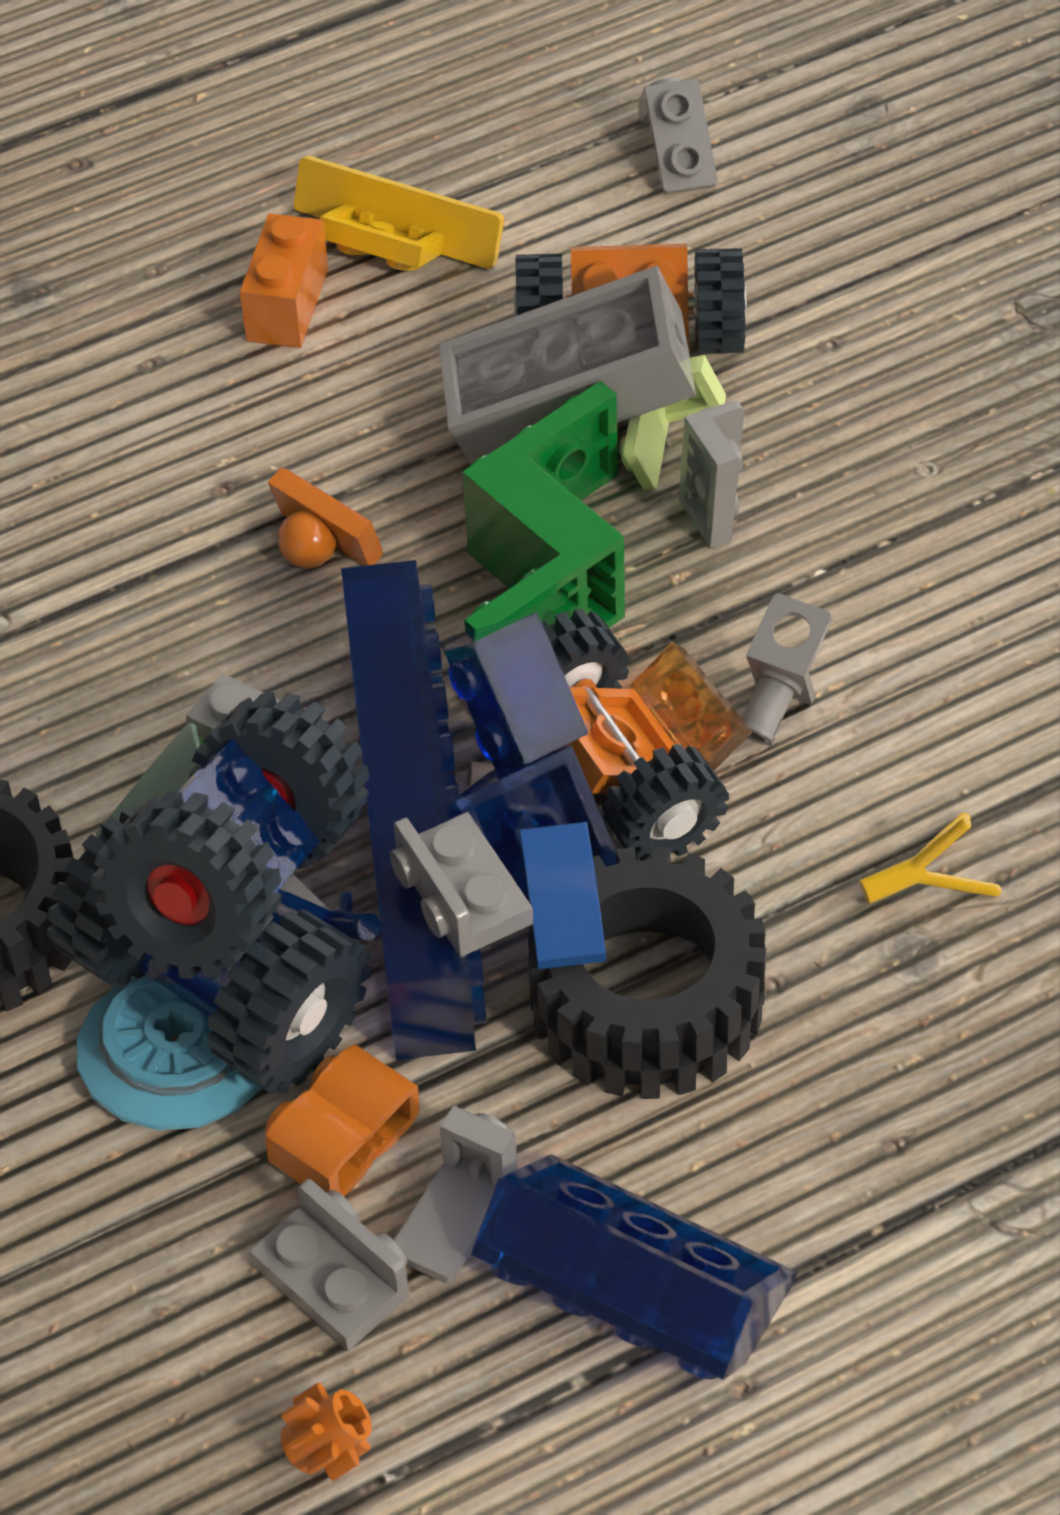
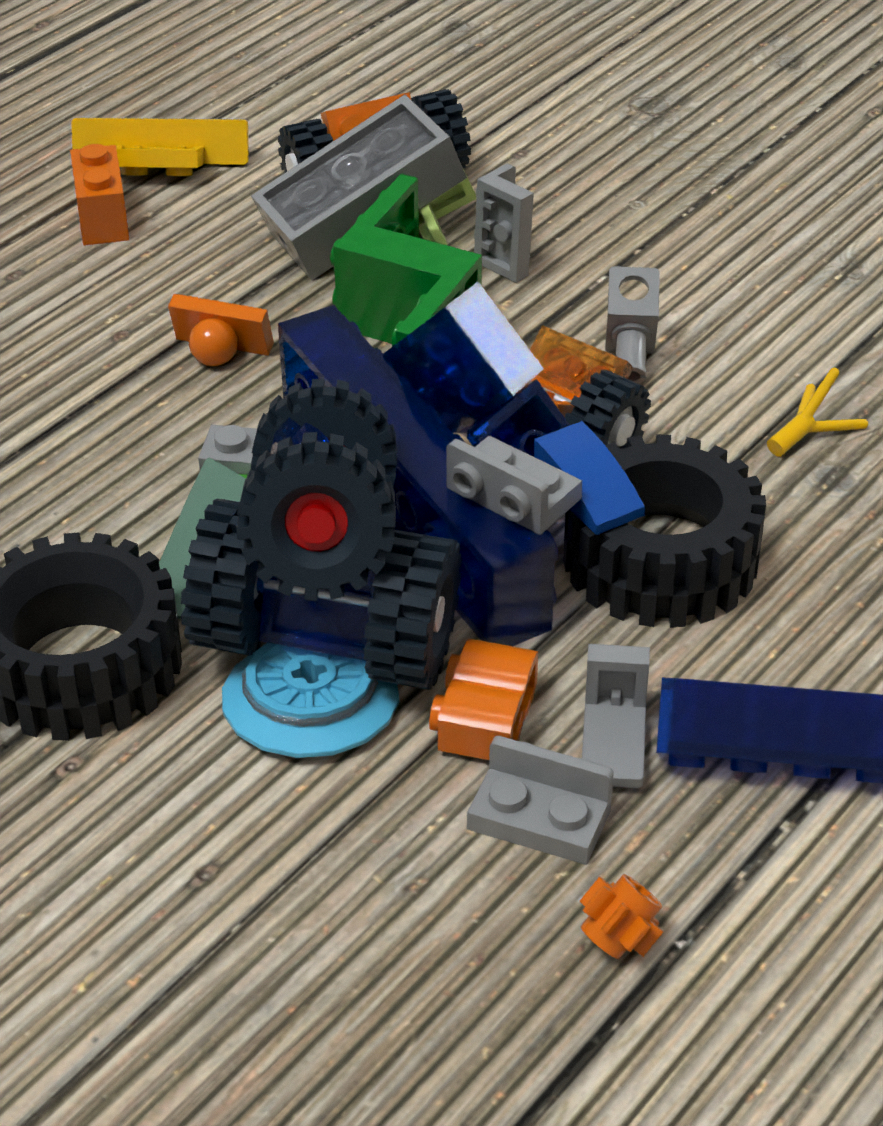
camera: 25 degrees left, 10 degrees down
(679, 134) = (342, 56): light grey bracket -> none

